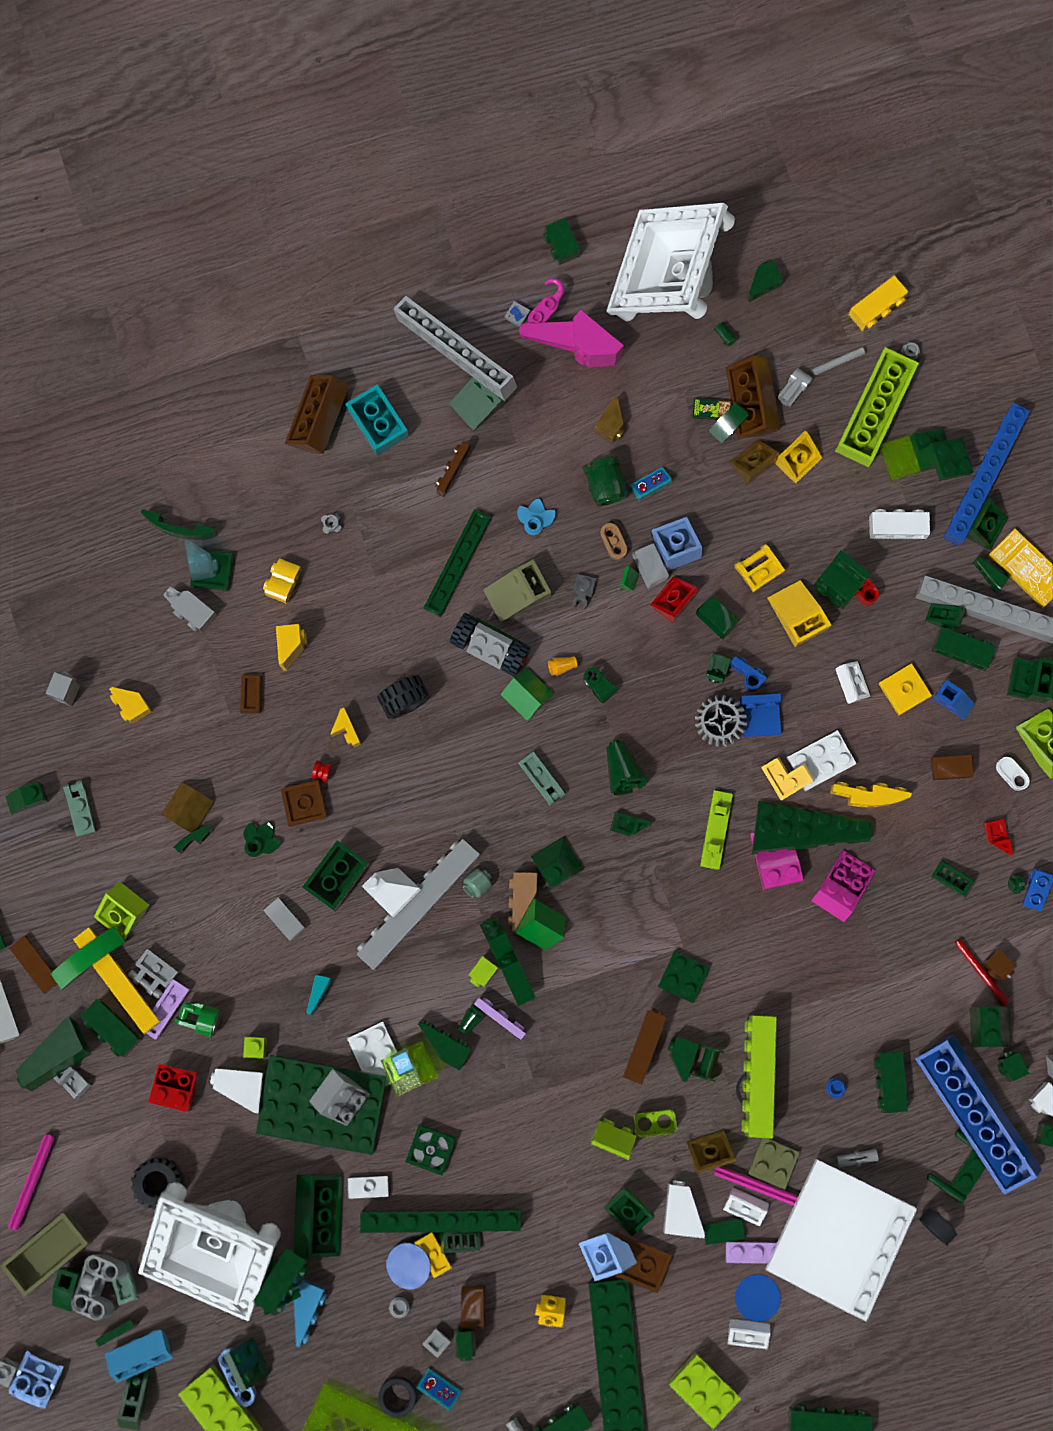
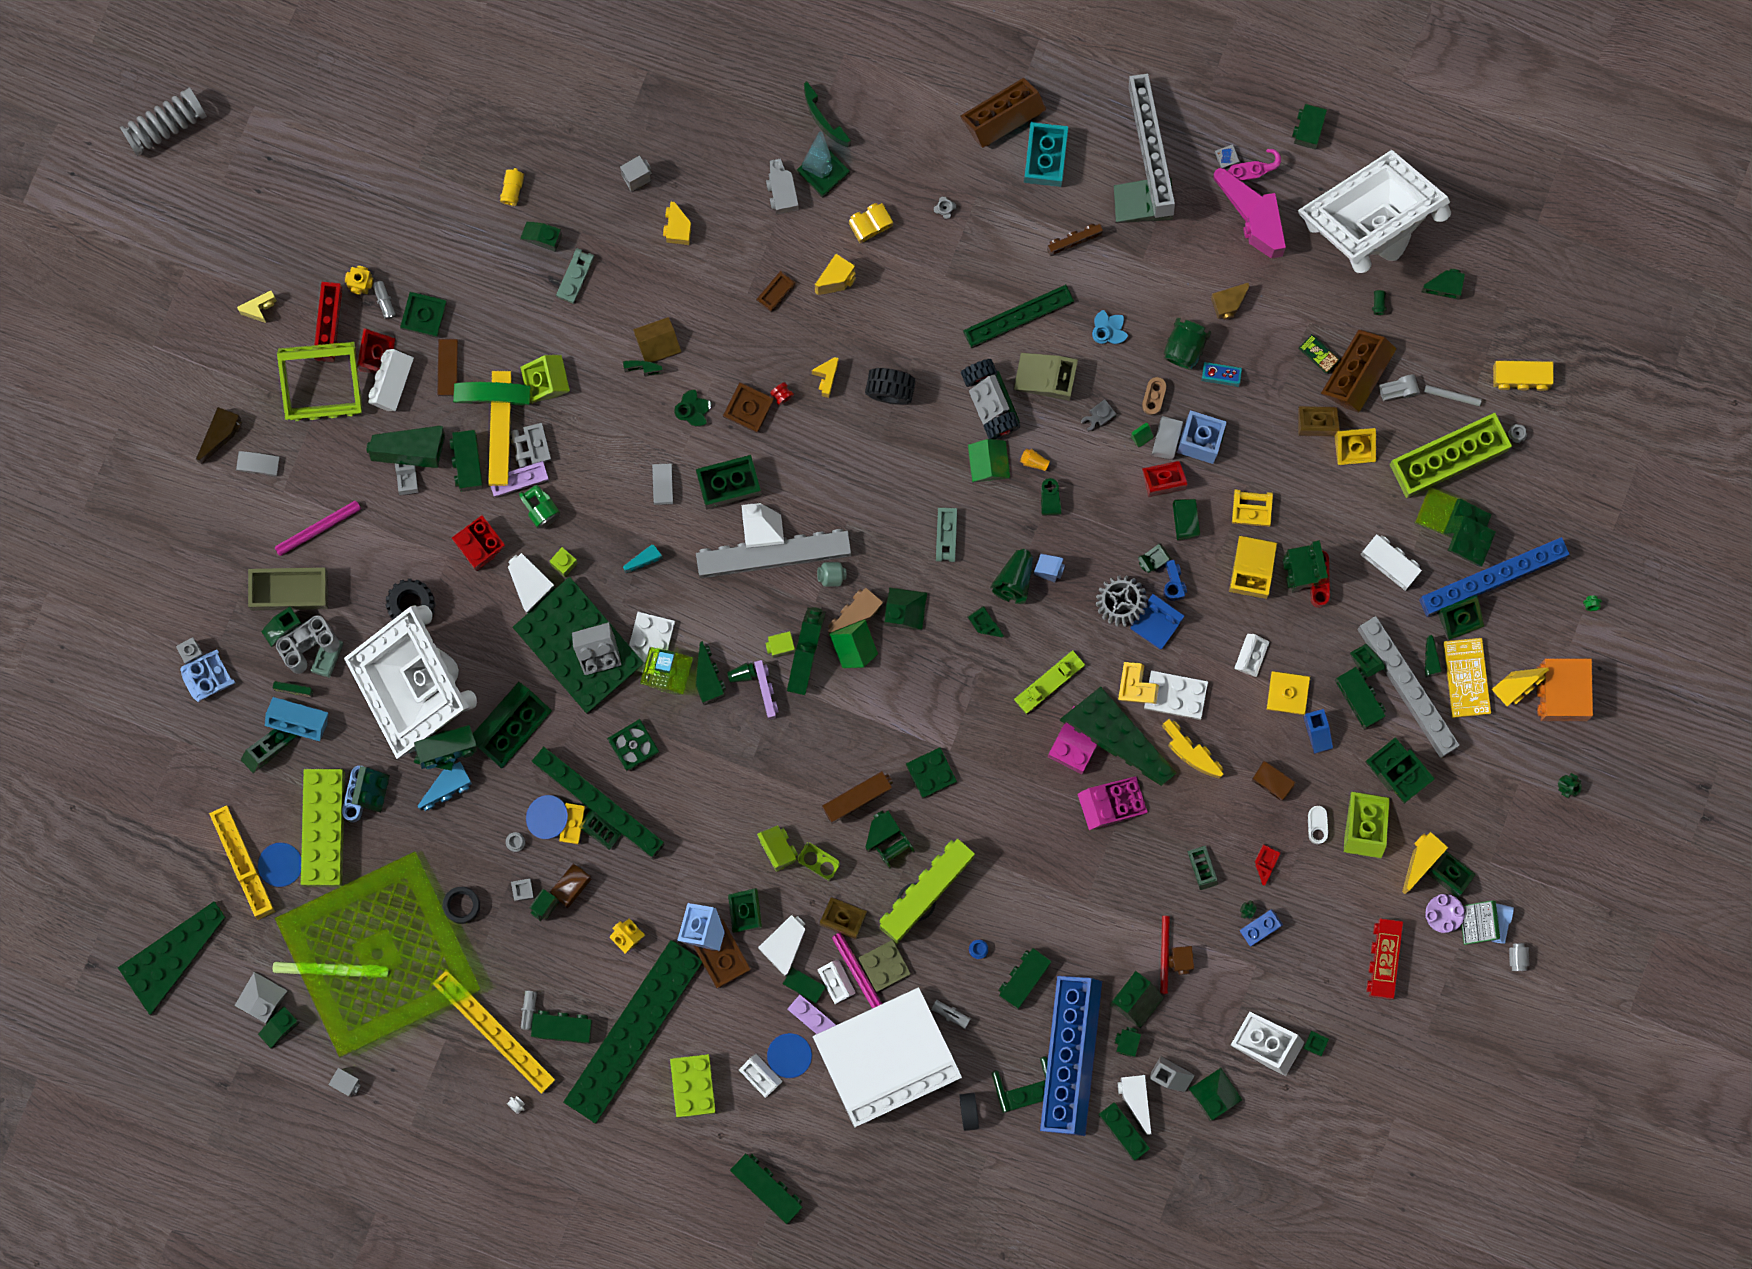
camera: 40 degrees right, 0 degrees up
(368, 1187) = (564, 735): white plate -> none
(439, 1389) = (496, 925): slope -> none
(644, 739) = (1049, 567): none -> medium blue slope
(729, 422) = (1322, 374): dark green slope -> none

